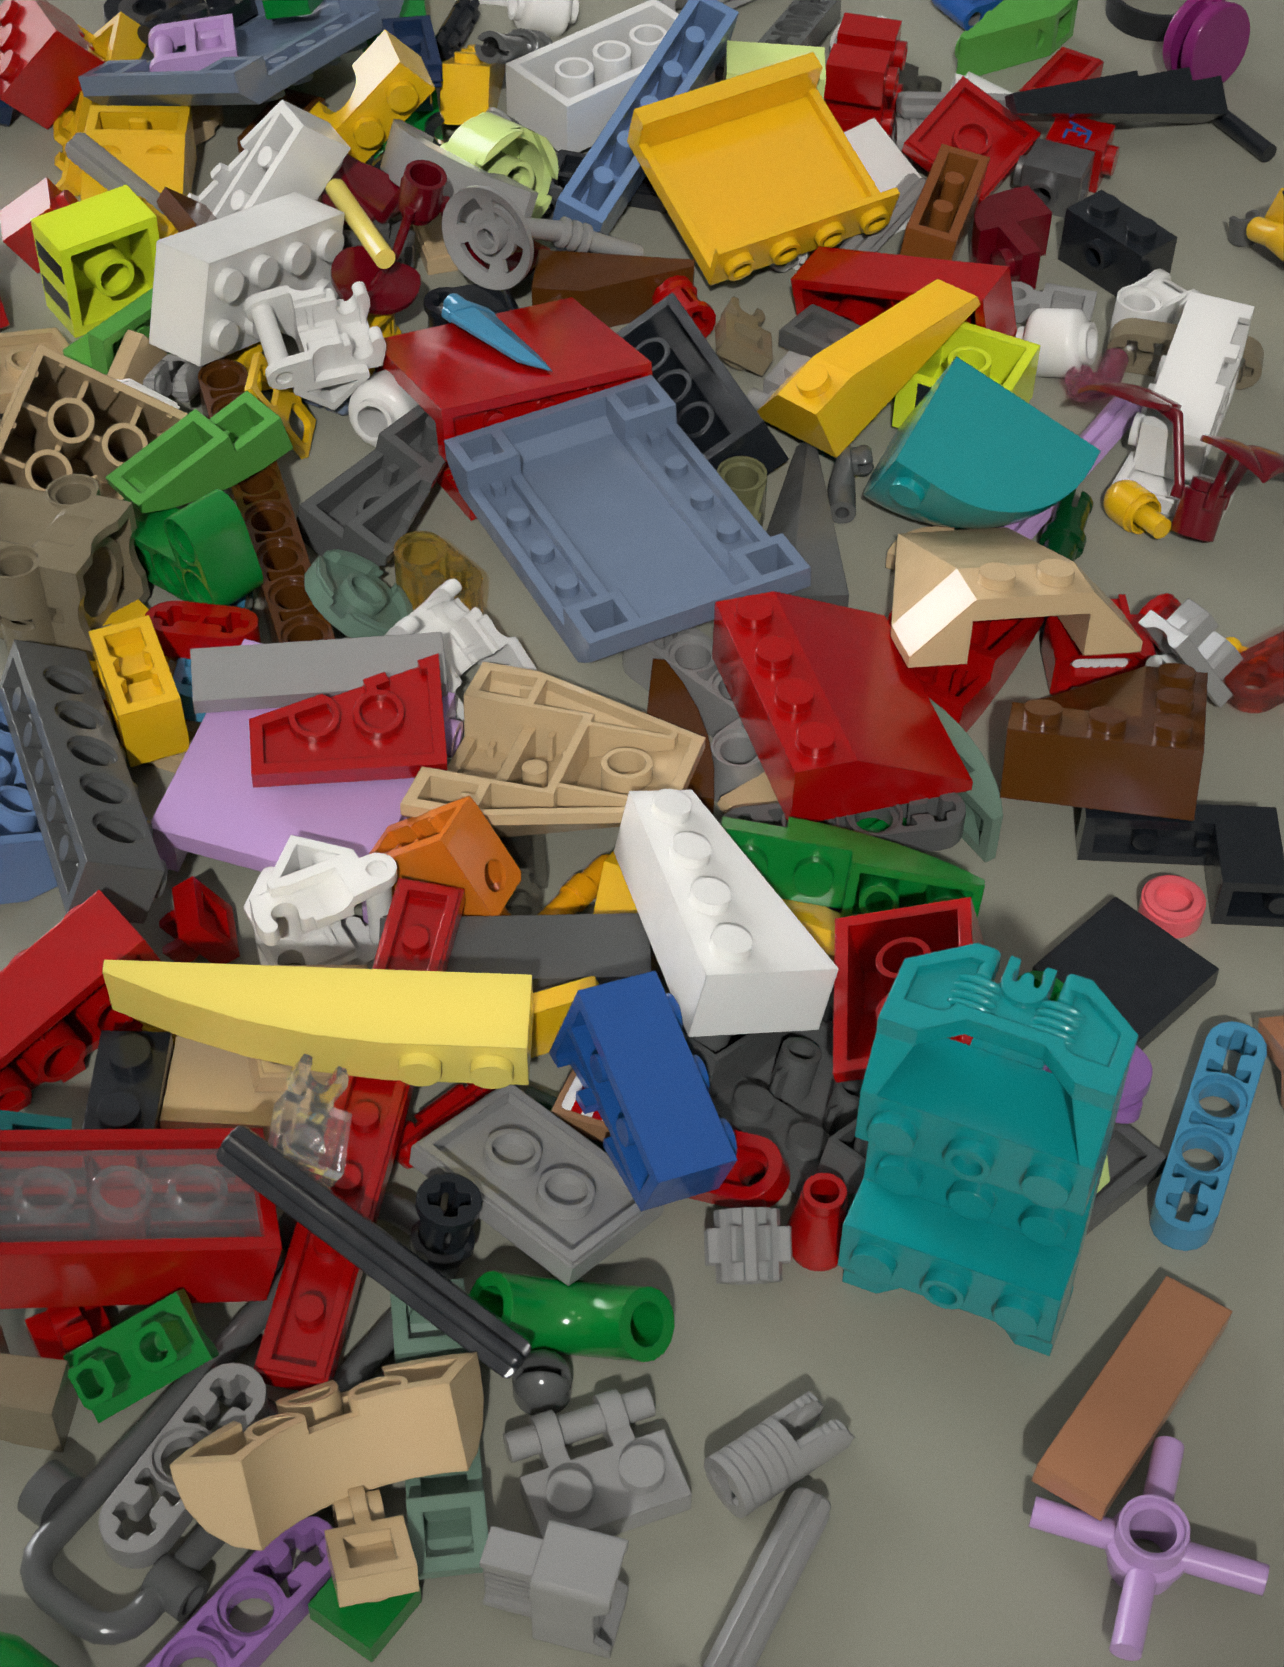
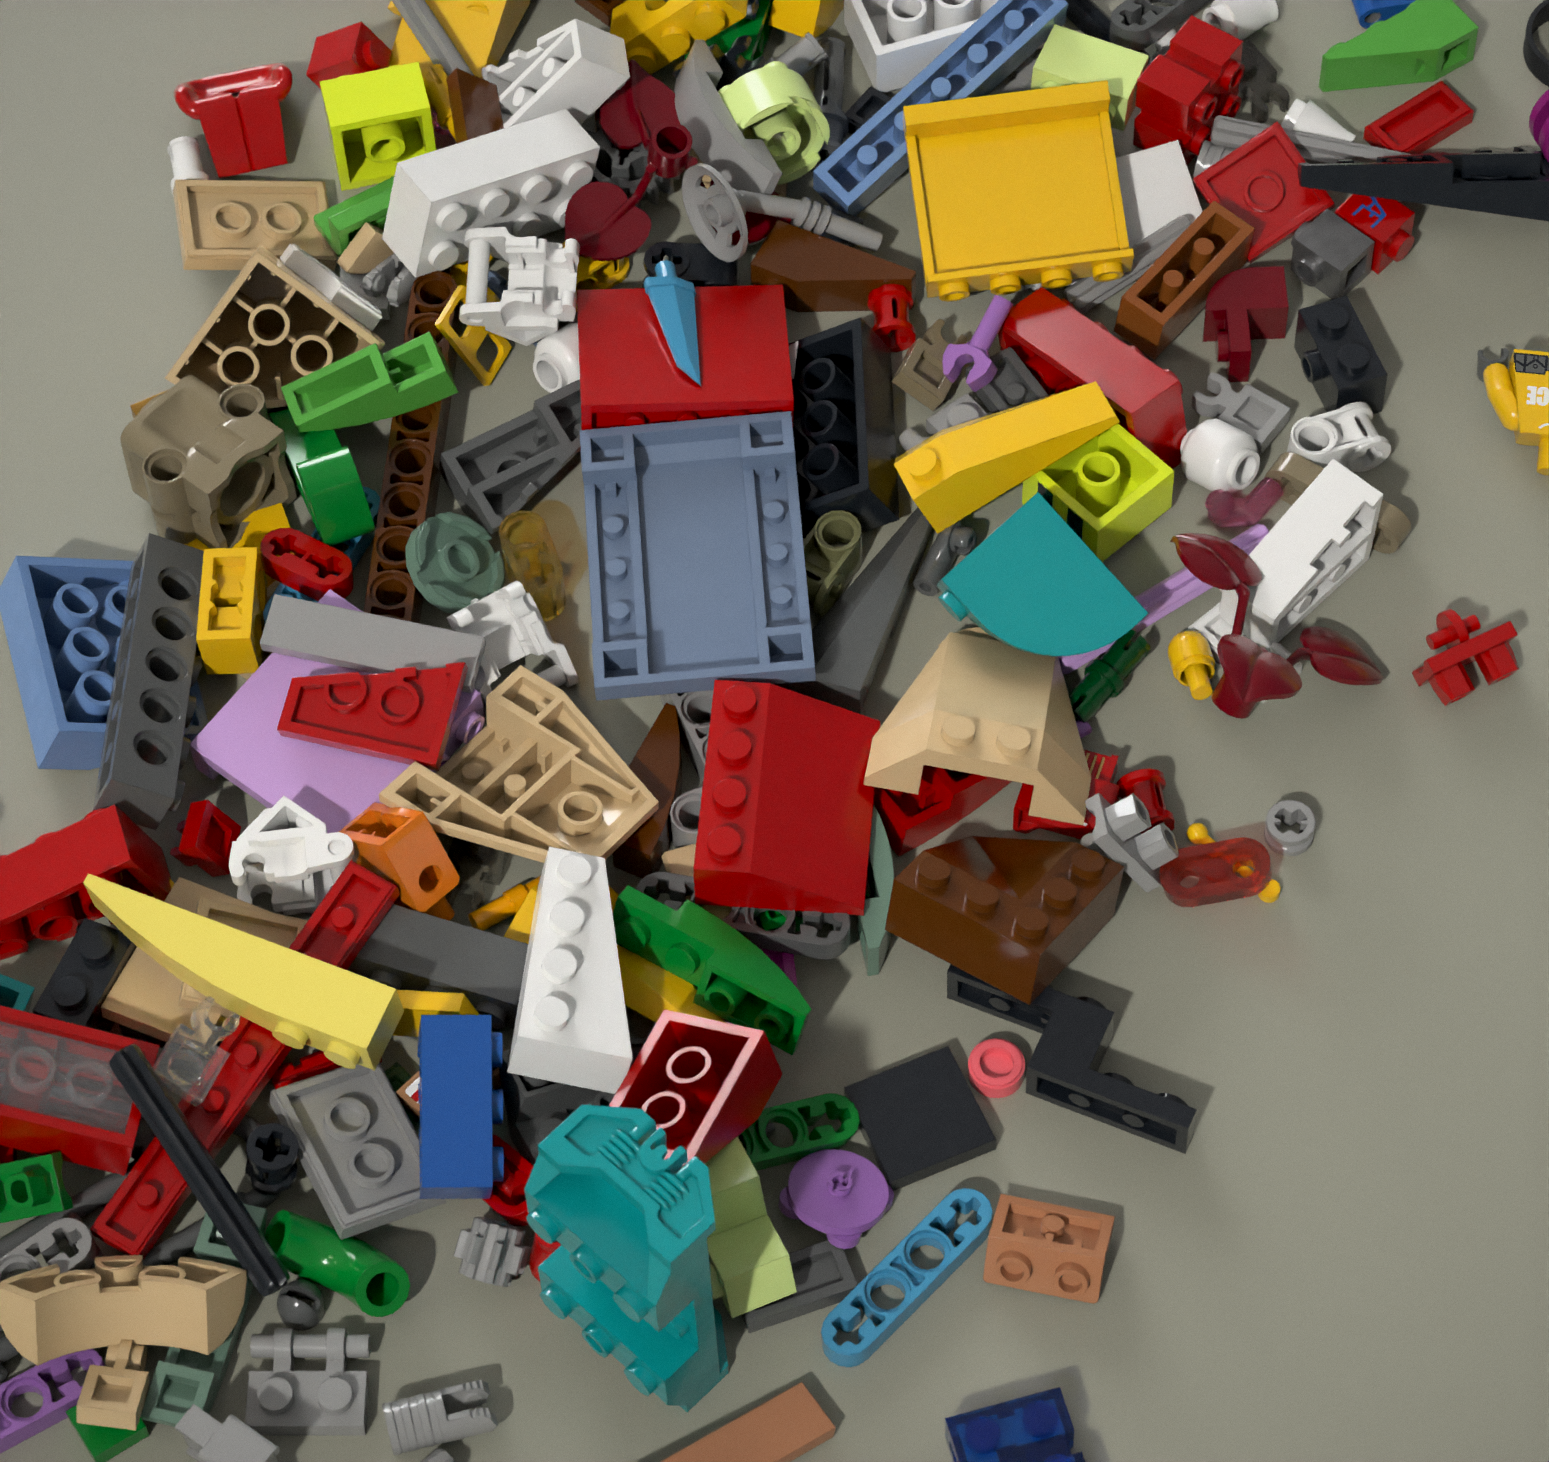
camera: 25 degrees right, 10 degrees up
(360, 224) = (612, 159): light yellow bar -> none
(788, 305) = (977, 349): none -> medium lavender bar

